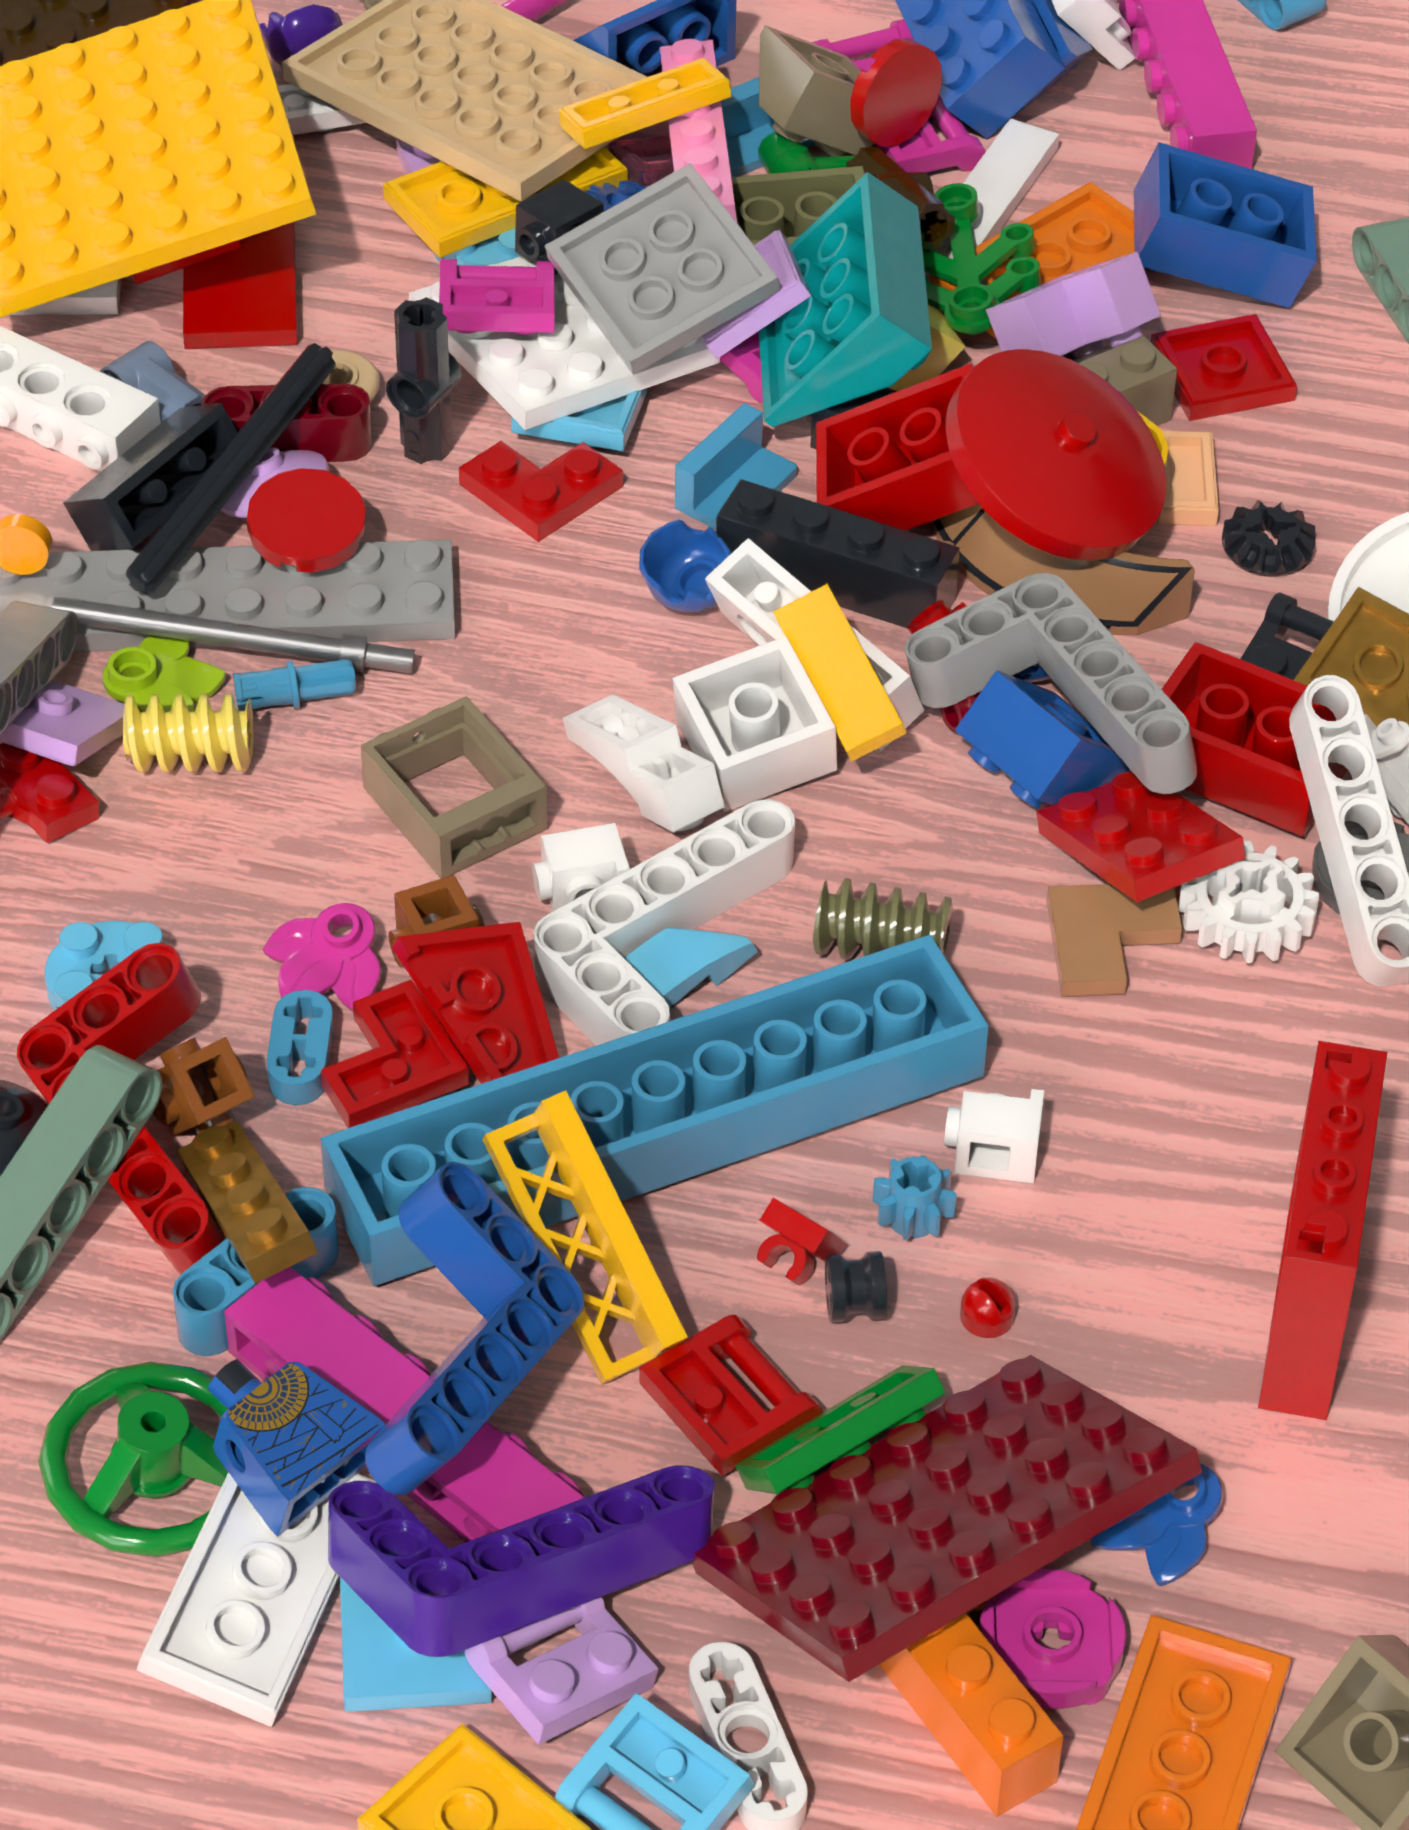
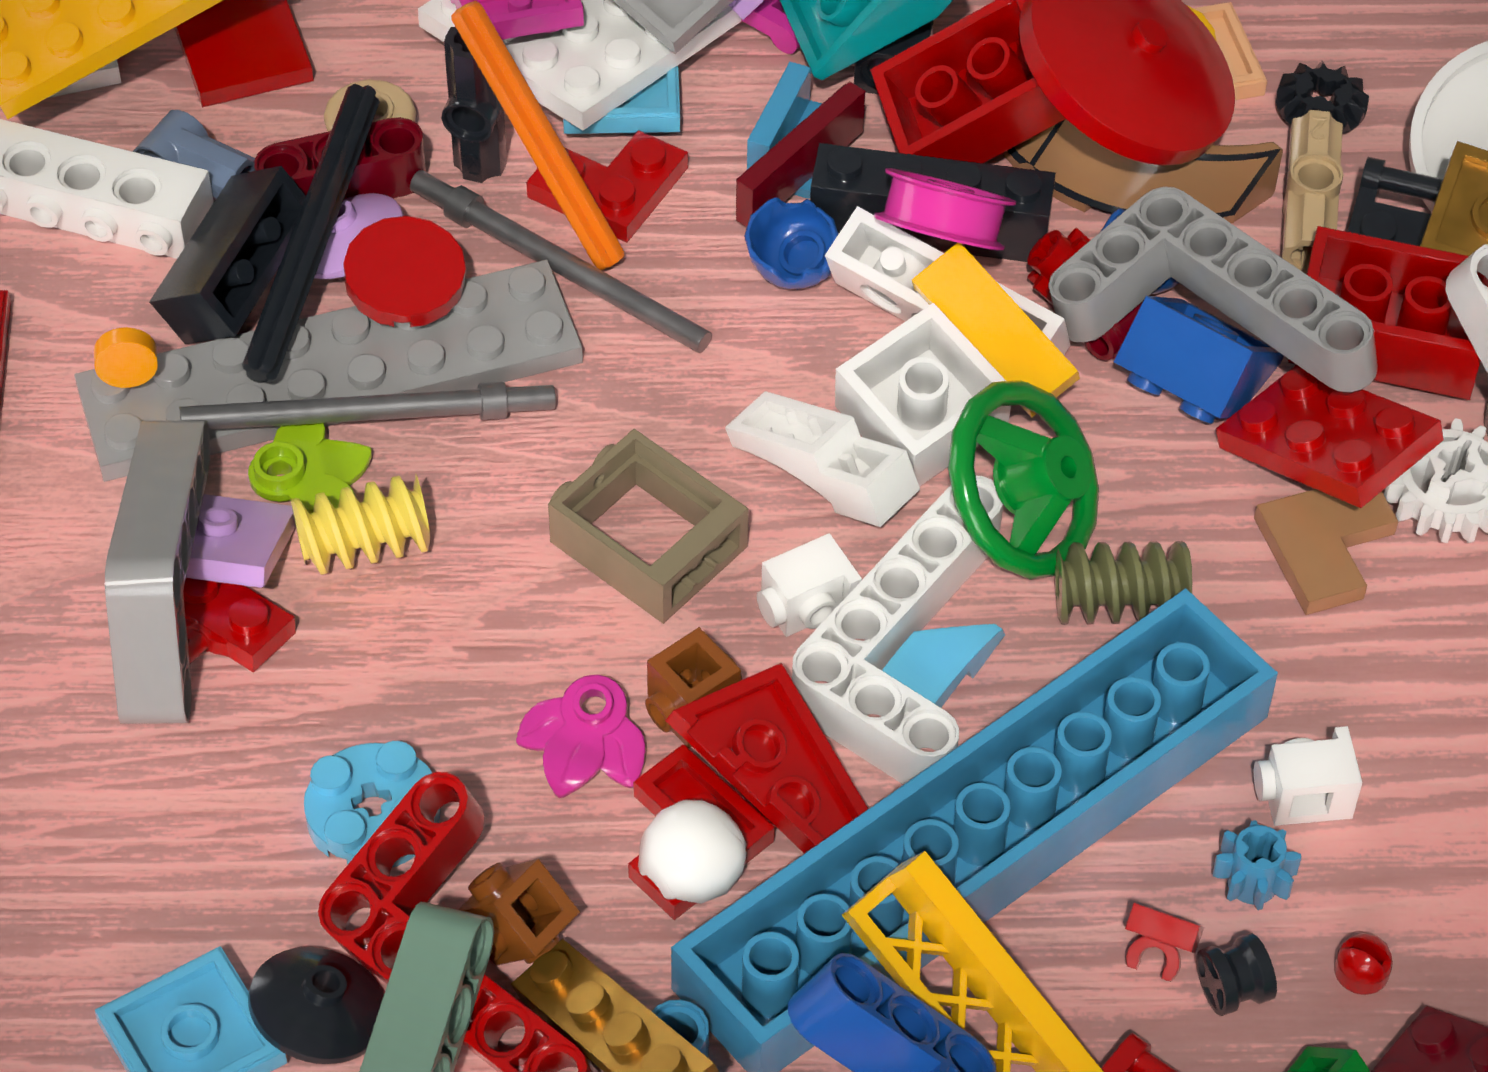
camera: 15 degrees left, 5 degrees up
(288, 1046) = (579, 842): dark azure beam -> none
(294, 684) = (444, 447): dark azure axle -> none
(379, 1067) = (692, 851): none -> white hair
(397, 483) = (469, 209): none -> flat silver bar
(463, 417) = (537, 134): none -> orange axle
(701, 496) = (794, 157): none -> dark red tile
(818, 807) = (1031, 476): none -> green piece
(826, 553) = (944, 209): none -> dark pink wheel
(1225, 602) = (1312, 184): none -> tan piece

